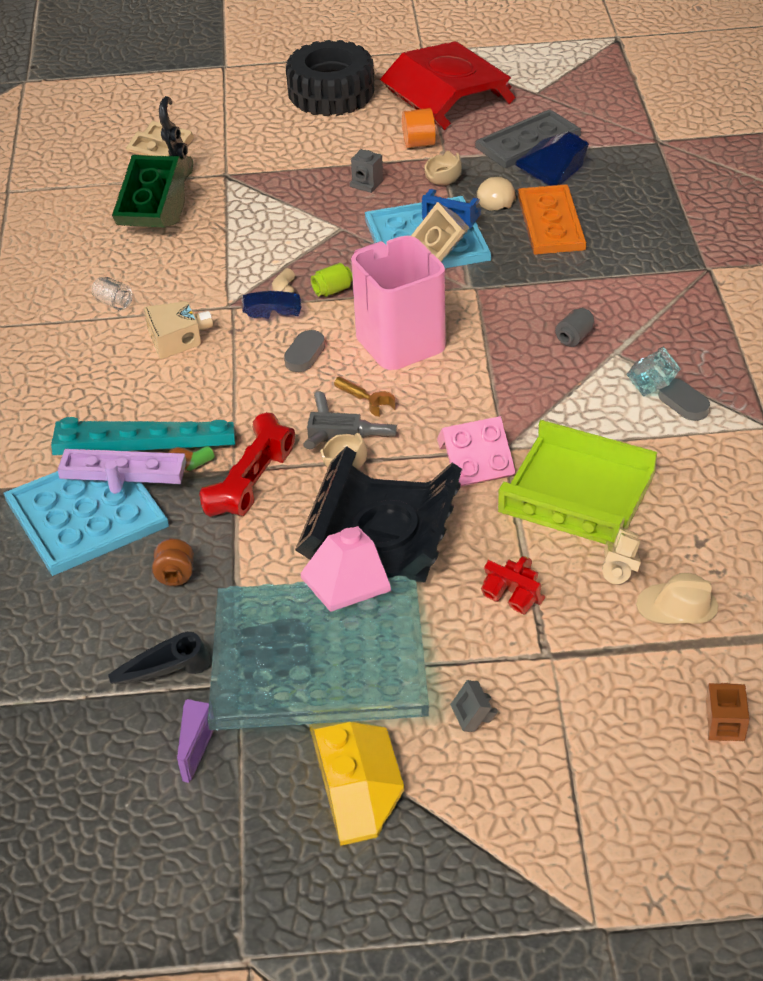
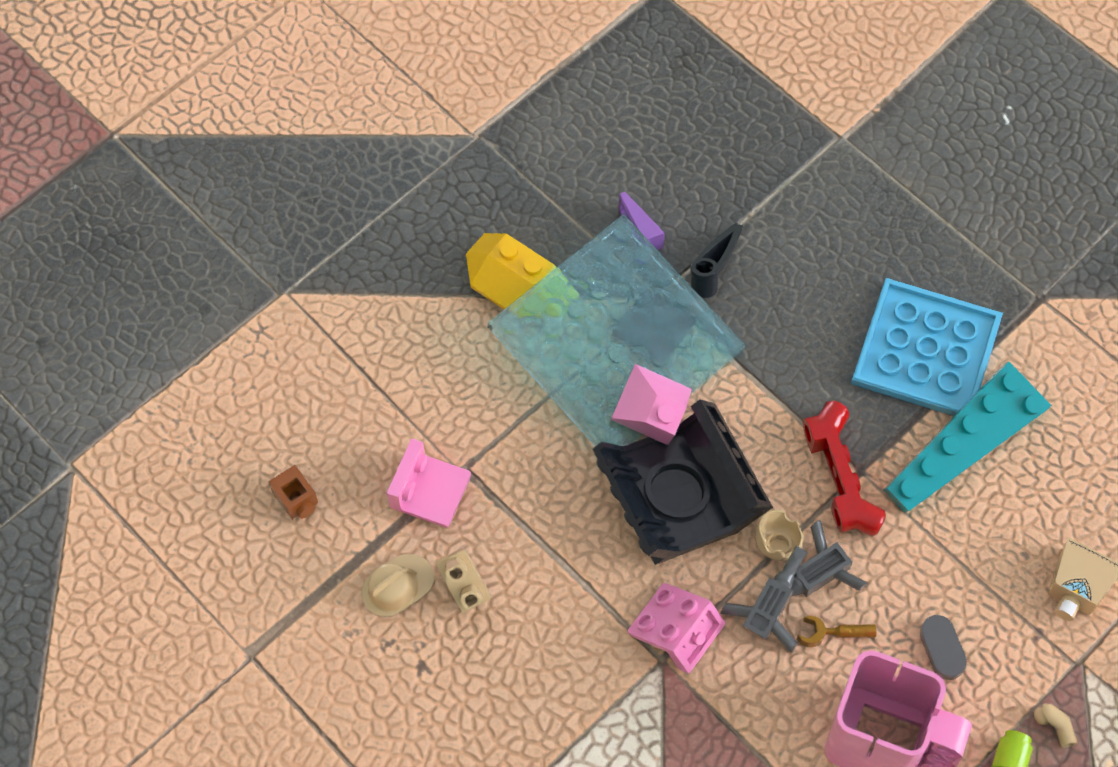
camera: 140 degrees right, 20 degrees up
(121, 467) = (932, 385): lavender plate -> none
(173, 562) = (798, 338): dark orange piece -> none
(195, 459) = (901, 447): bright green arm -> none
(262, 303) = (1033, 679): clear blue slope -> none
(396, 418) = (764, 615): none -> dark grey piece
(472, 706) = (476, 375): dark grey tile -> none
(515, 578) = (530, 502): red hips -> none
(579, 483) = (561, 649): lime panel -> none
(595, 647) = (427, 486): none -> bright pink bracket

